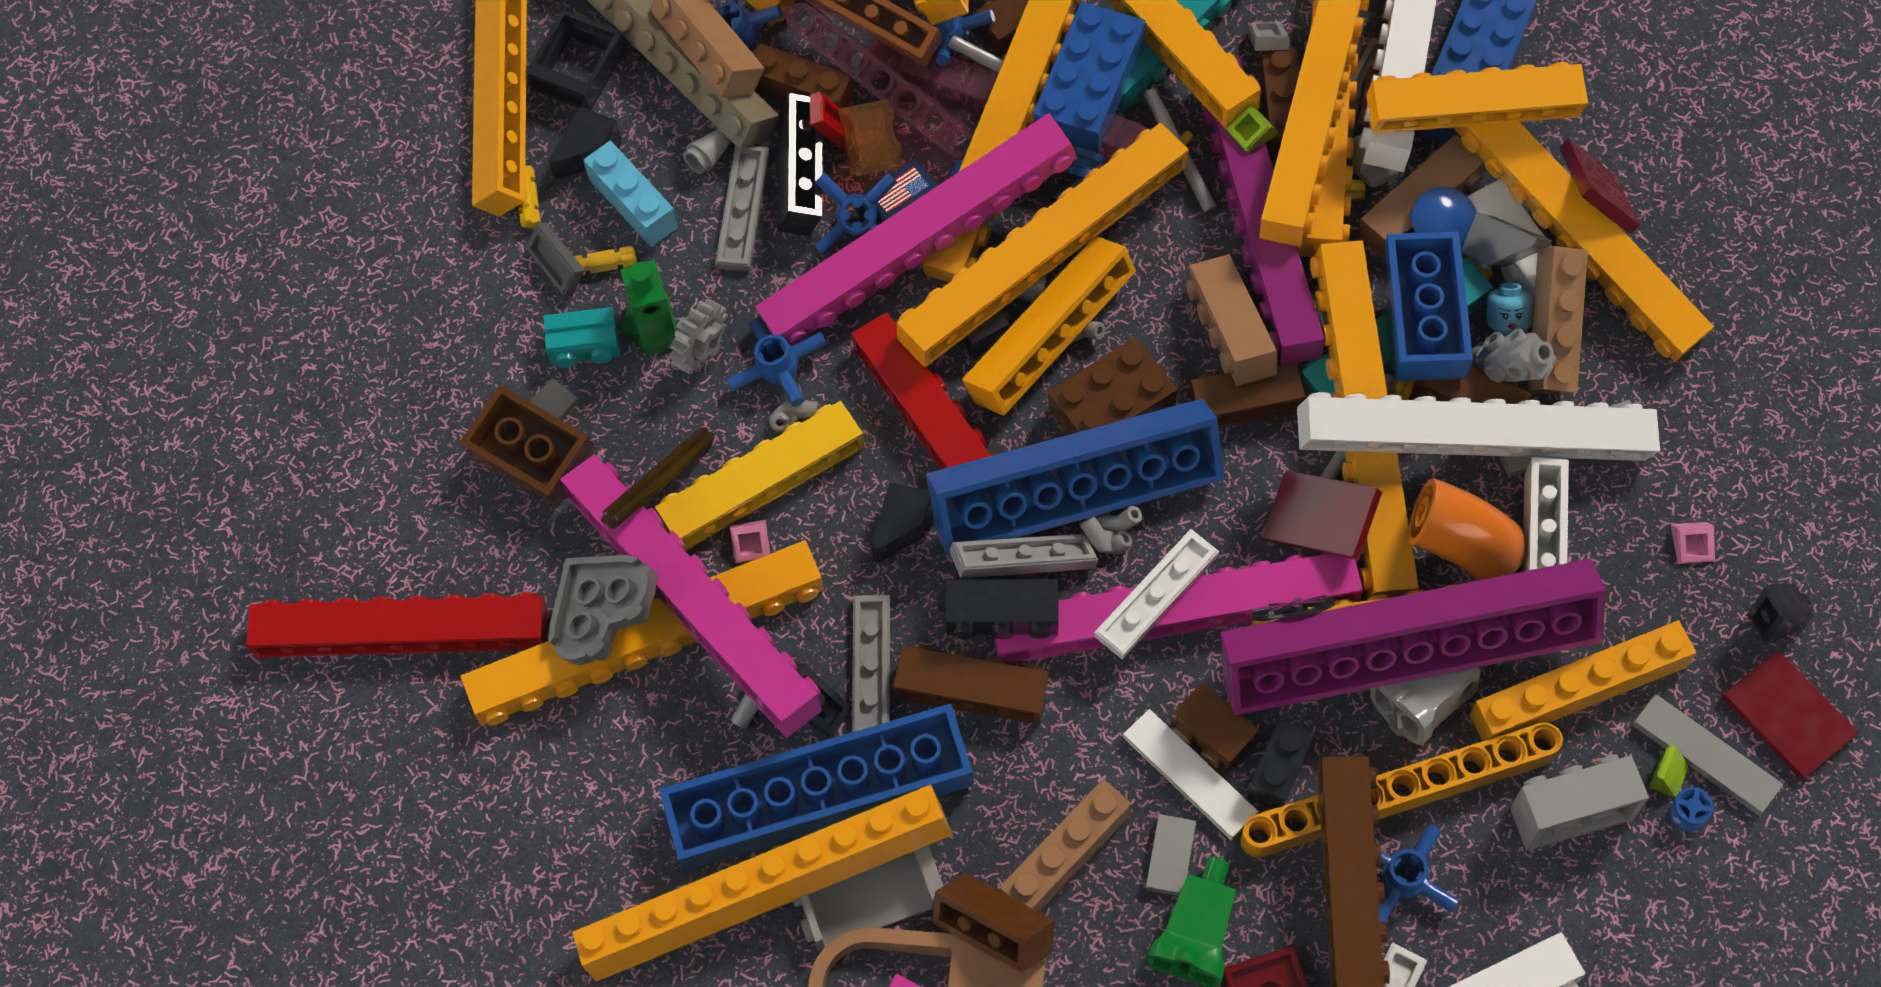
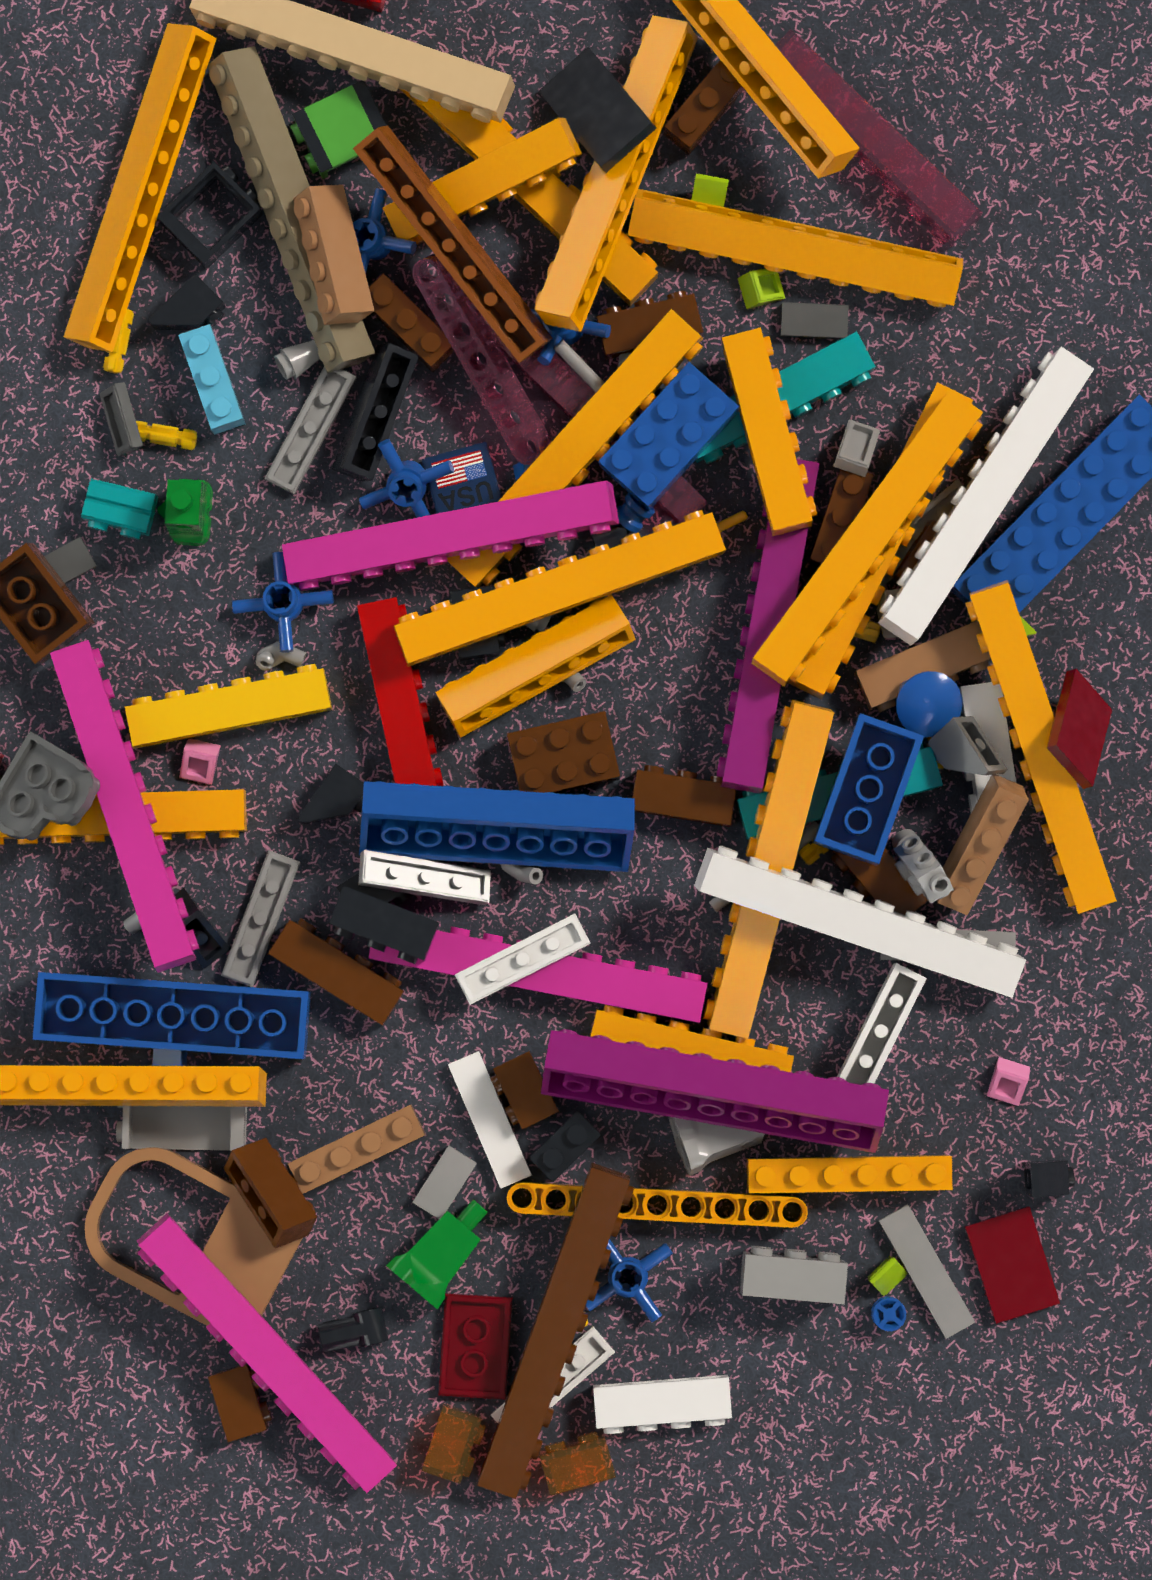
camera: 15 degrees right, 20 degrees up
(657, 478) = (135, 685): dark brown axle -> none
(698, 336) = (220, 555): light grey gear -> none
(826, 119) = (420, 382): red tile -> none
(870, 137) = (447, 413): clear orange brick -> none
(1105, 540) = (504, 884): light grey arm -> none
(1191, 172) = (726, 531): light grey bar -> none
(1232, 320) = (697, 726): medium nougat brick -> none
(1251, 129) = (794, 547): lime slope -> none
(1294, 609) = (625, 1027): black wheel -> none
(1322, 515) = (694, 942): tile -> none
(1466, 531) = (808, 1009): orange brick -> none
(1476, 97) = (996, 616): light orange brick -> none
(1509, 308) = (948, 810): medium azure head -> none

